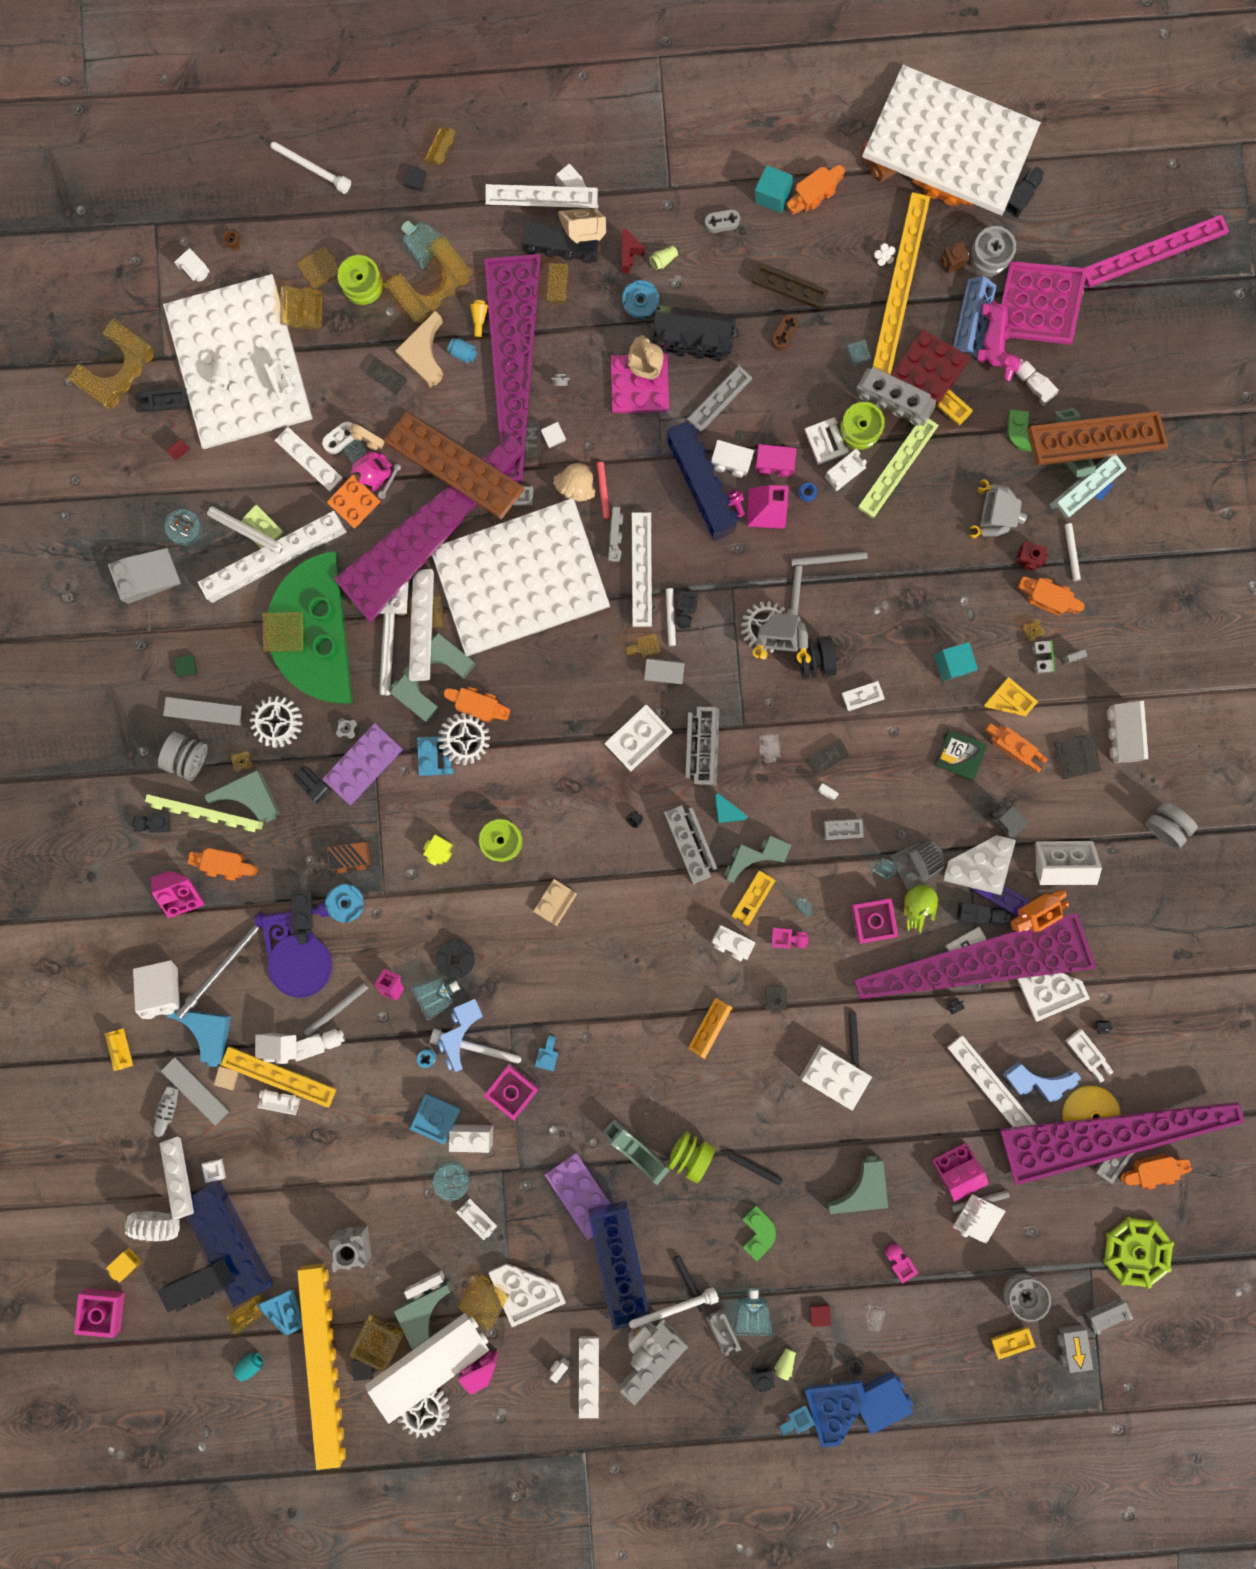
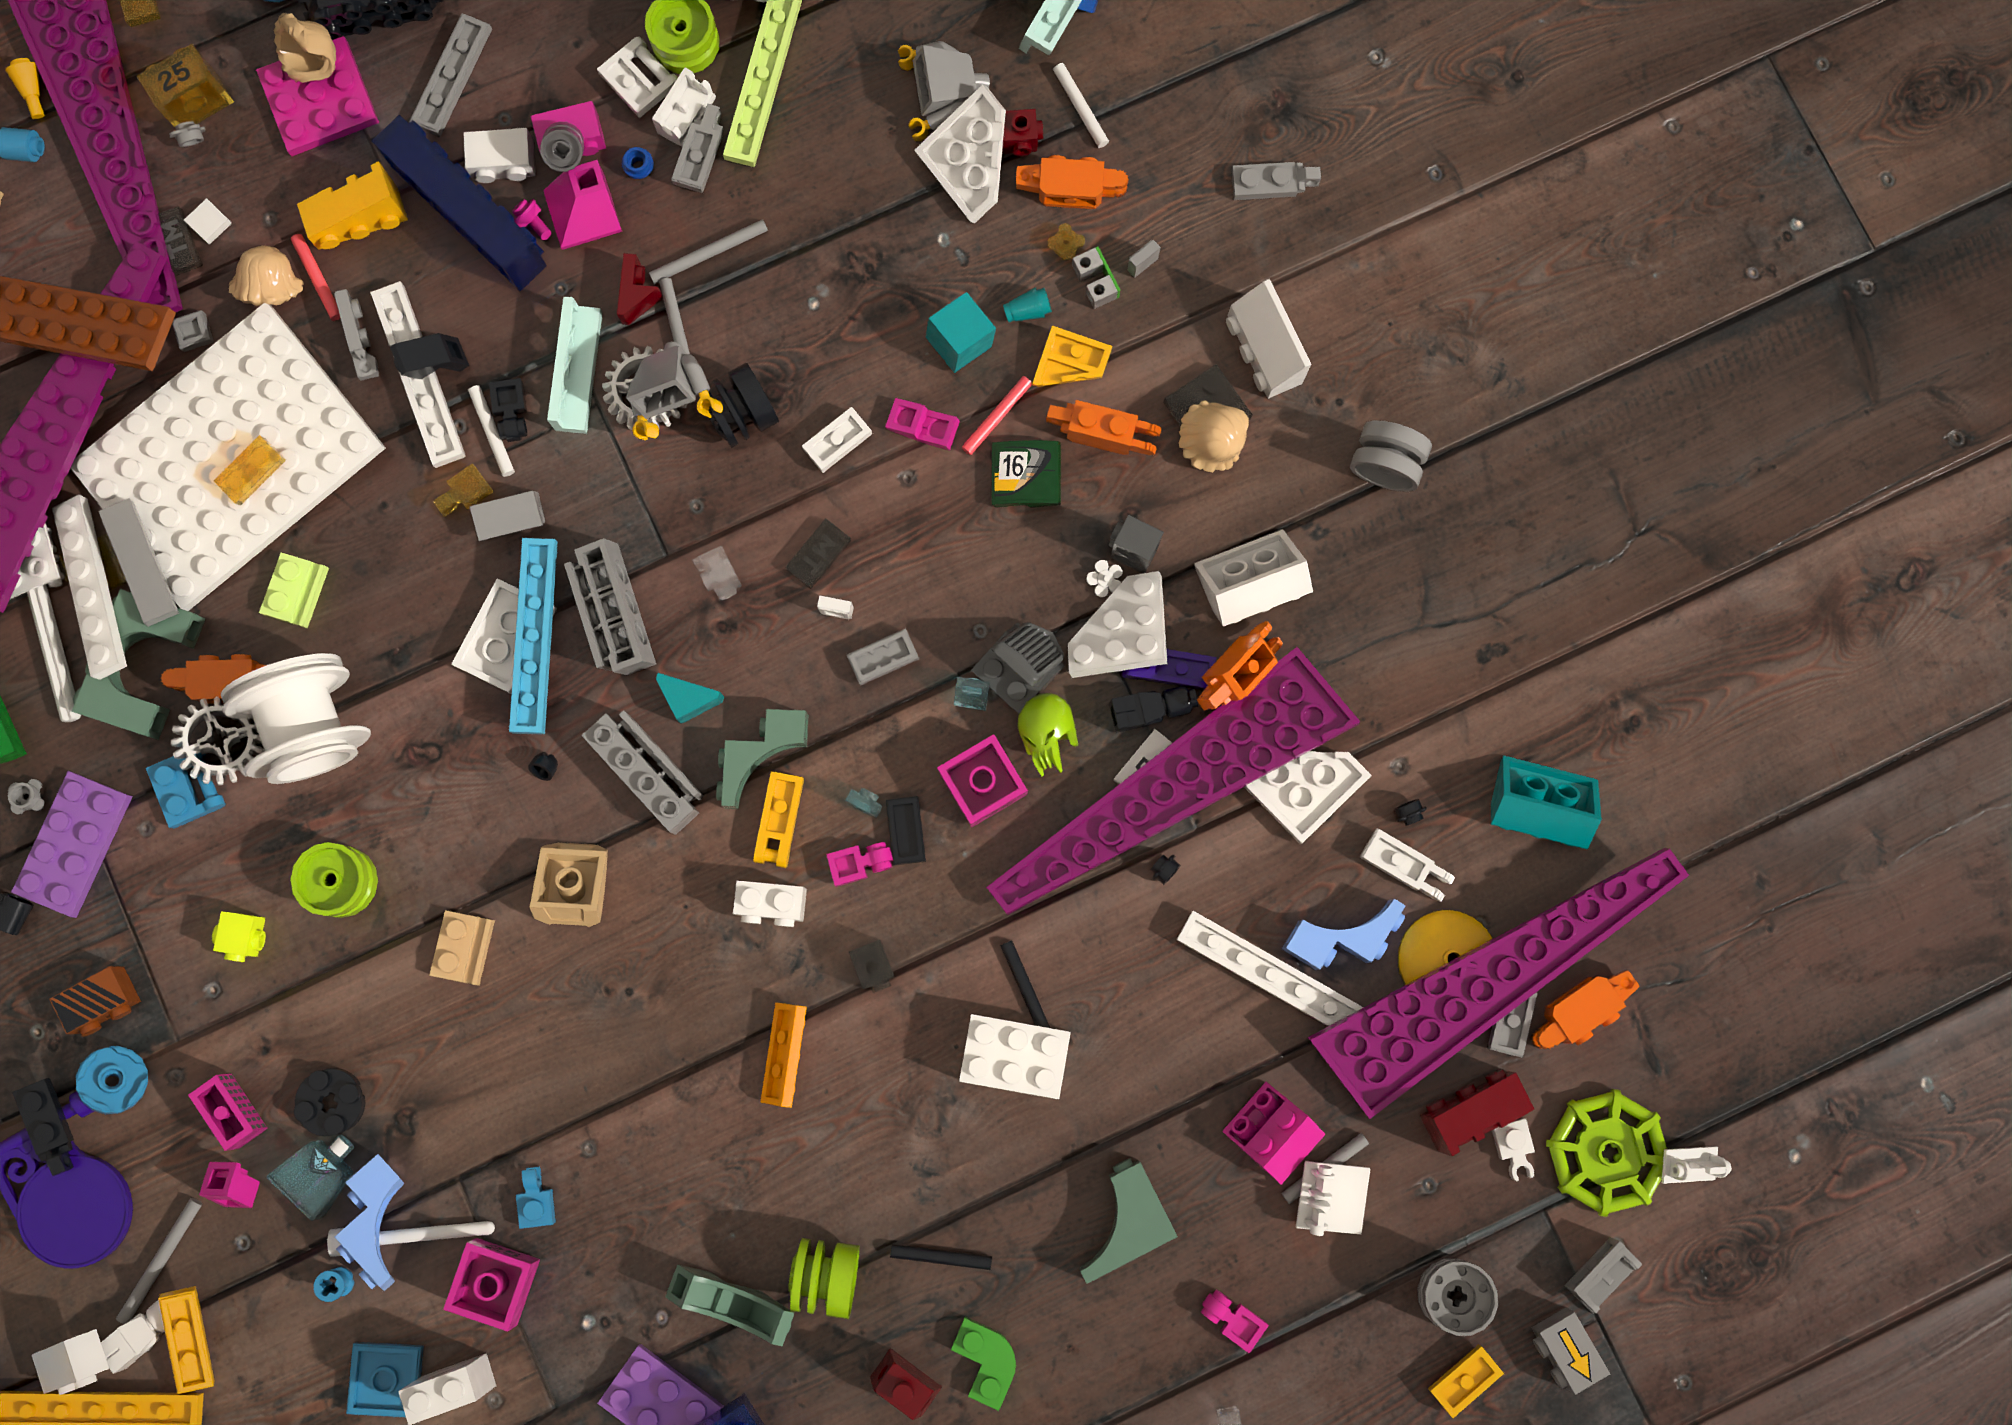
camera: 20 degrees left, 5 degrees down
(339, 1058) = (186, 1339): none -> yellow tile
(401, 945) = (227, 1111): none -> dark pink brick
(453, 622) = (138, 562): none -> light grey tile
(514, 746) = (295, 717): none -> white wheel
(530, 667) = (294, 590): none -> yellowish green plate
(532, 593) = (249, 470): none -> clear yellow plate
(569, 354) = (185, 87): none -> clear yellow brick
(628, 890) = (569, 884): none -> tan slope
(638, 461) = (353, 210): none -> yellow wedge
(652, 563) = (427, 354): none -> black slope
(656, 746) = (533, 636): none -> medium azure plate
(711, 1228) = (904, 1385): none -> dark red torso
(731, 599) = (574, 367): none -> light aqua fence
(771, 467) = (562, 146): none -> flat silver wheel
(778, 571) = (633, 294): none -> dark red slope
(820, 930) = (905, 830): none -> black tile
(845, 498) = (699, 151): none -> light grey hinge
(913, 704) = (921, 424): none -> dark pink slope
(957, 715) = (997, 415): none -> coral bar
(982, 831) = (1104, 578): none -> white plant
(998, 559) = (968, 153): none -> white plate
(998, 659) = (1028, 306): none -> teal cone
(1075, 774) = (1213, 435): none -> tan hair
(1075, 1203) = (1476, 1111): none -> dark red wedge
(1088, 1226) = (1513, 1143): none -> white plate
(1165, 637) = (1272, 180): none -> light grey hinge
(1180, 1050) = (1546, 802): none -> teal slope
(1182, 1277) = (1693, 1165): none -> white hinge

